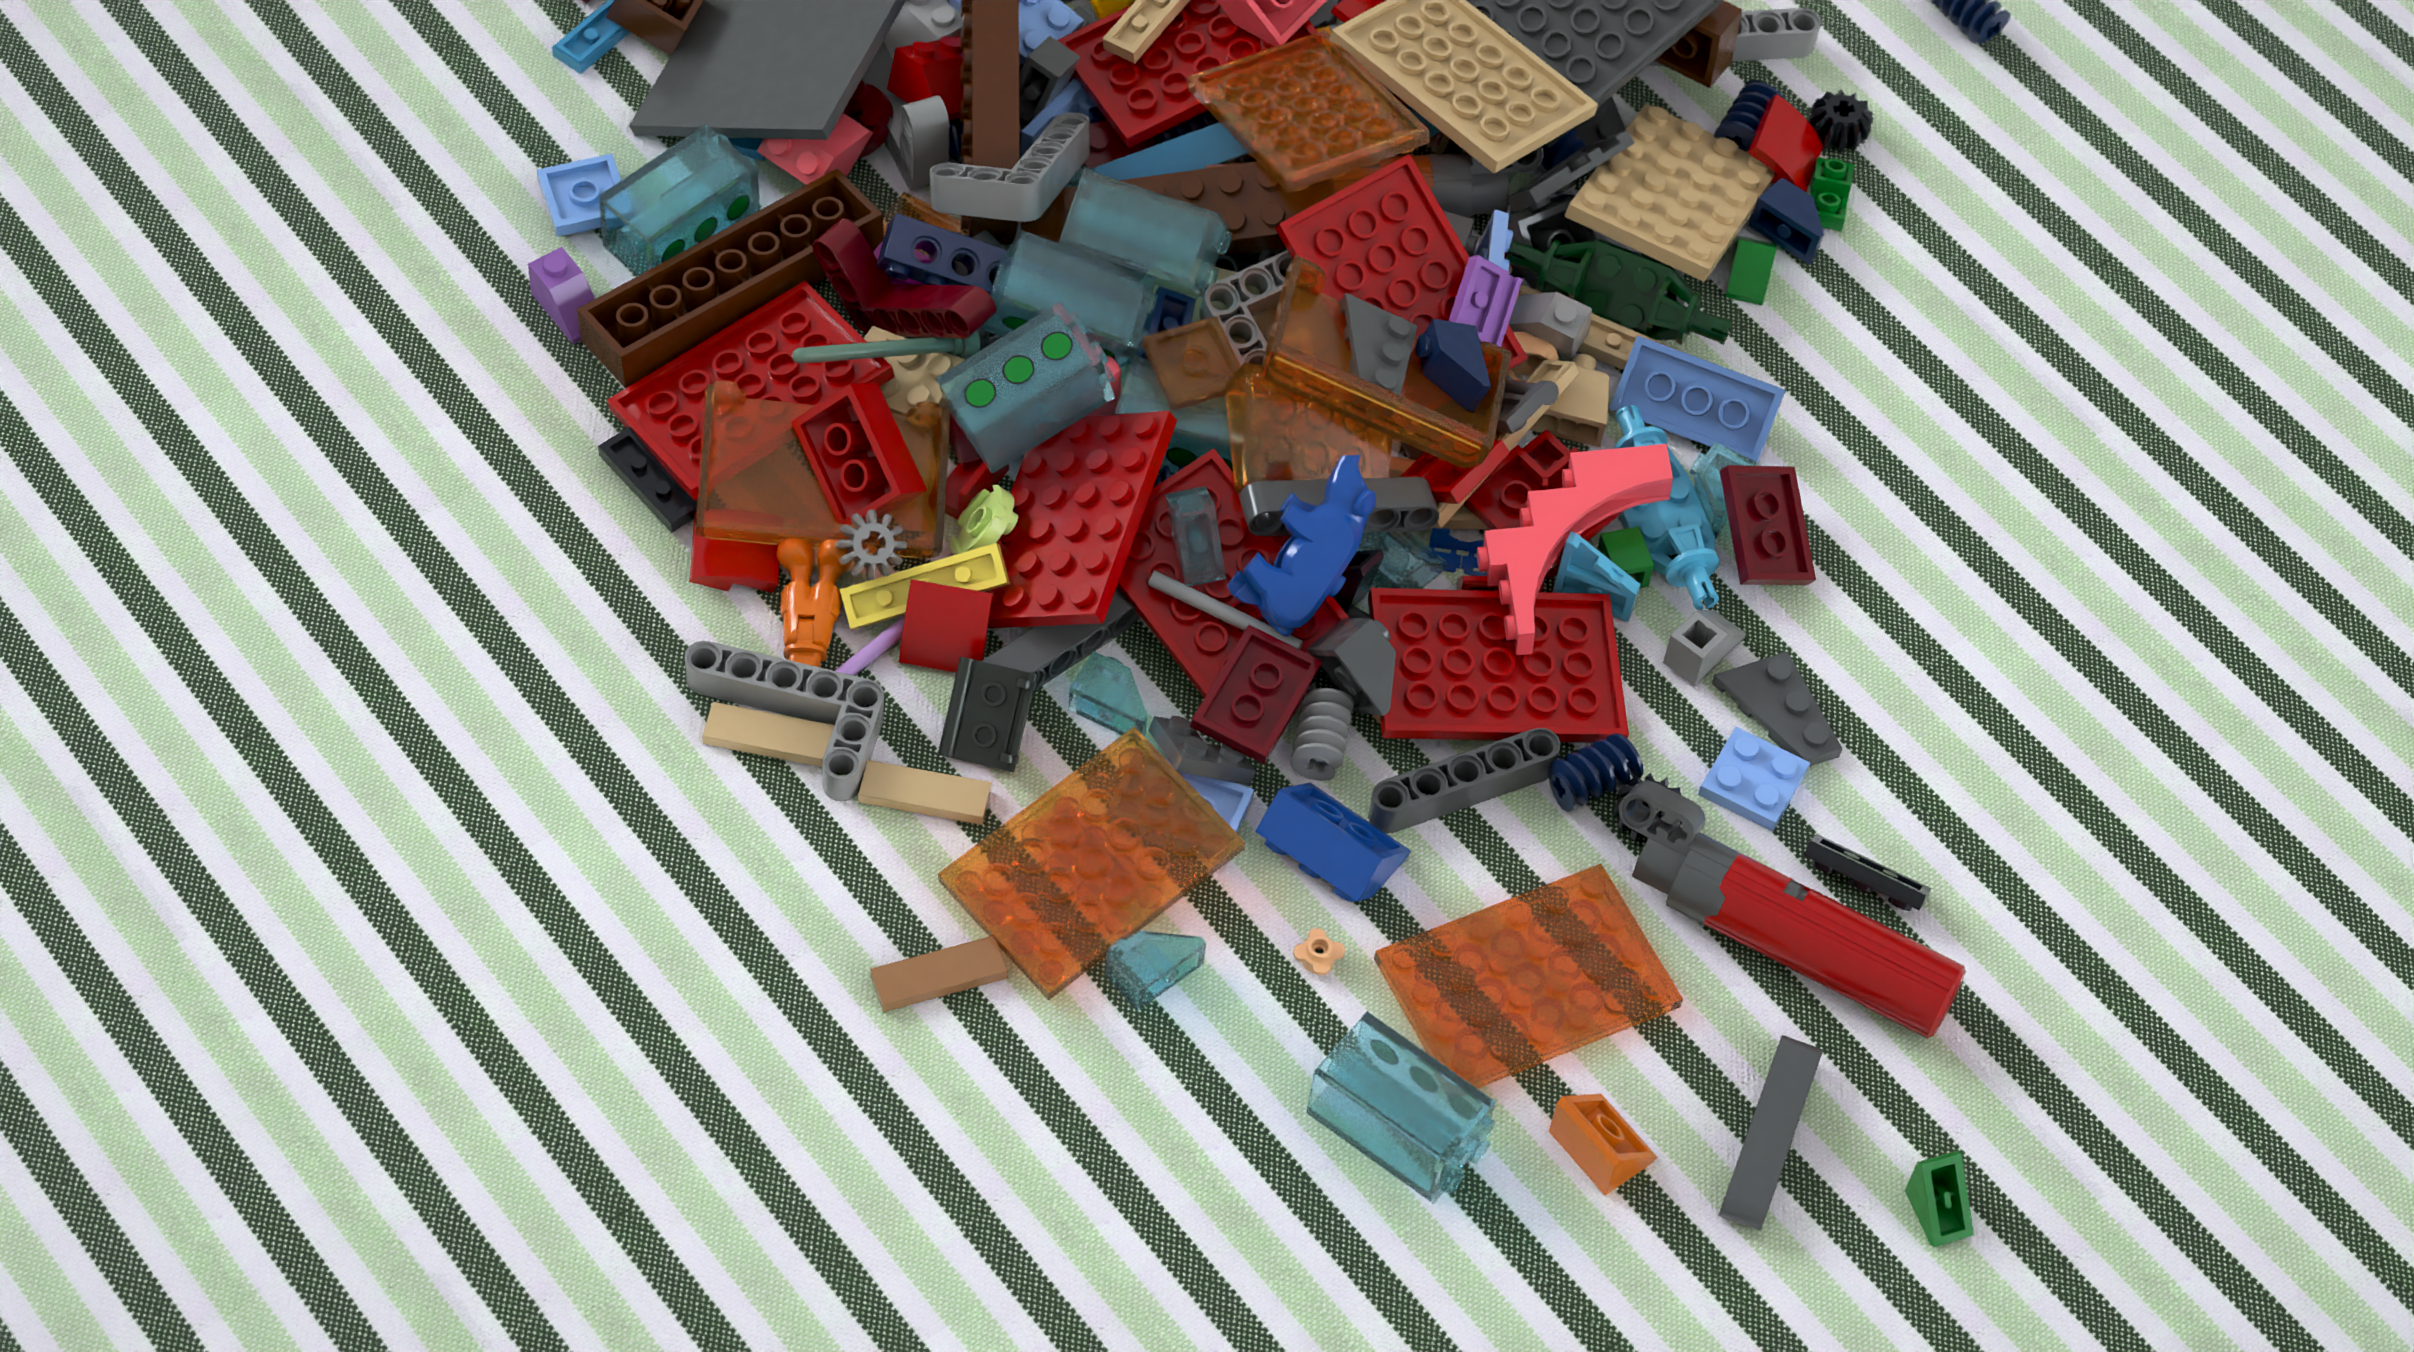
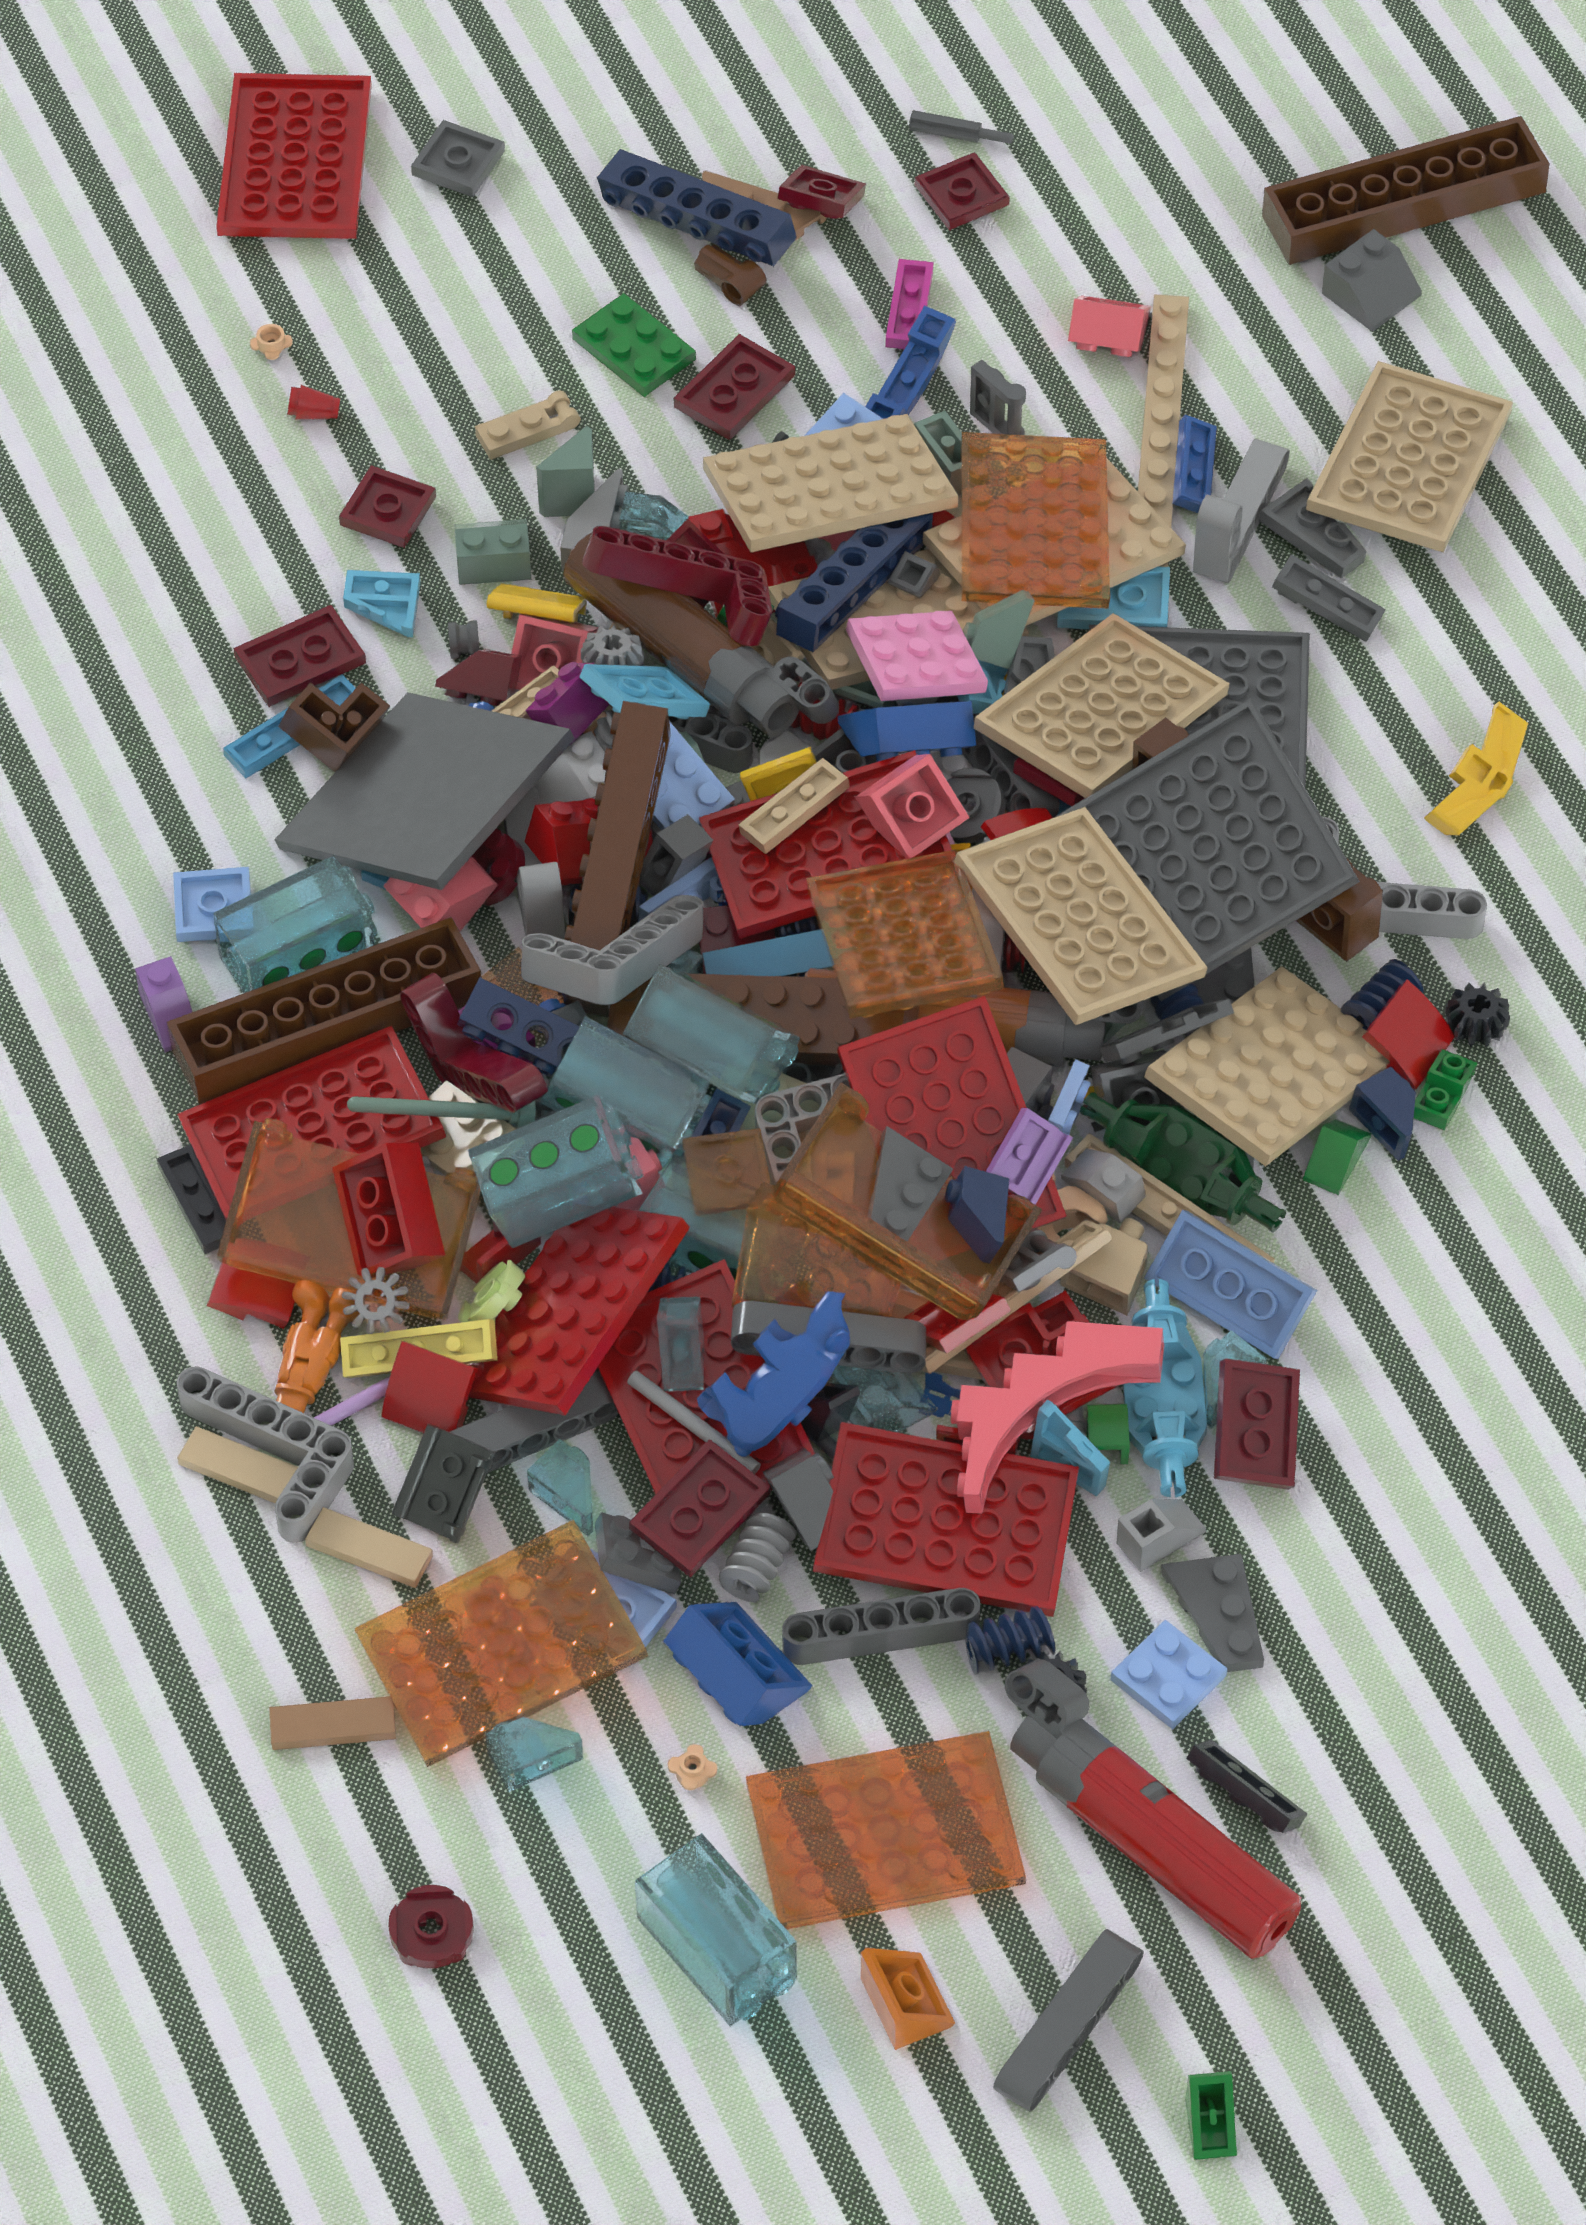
camera: 20 degrees right, 0 degrees up
(1097, 1184) = (435, 1949): none -> dark red plate

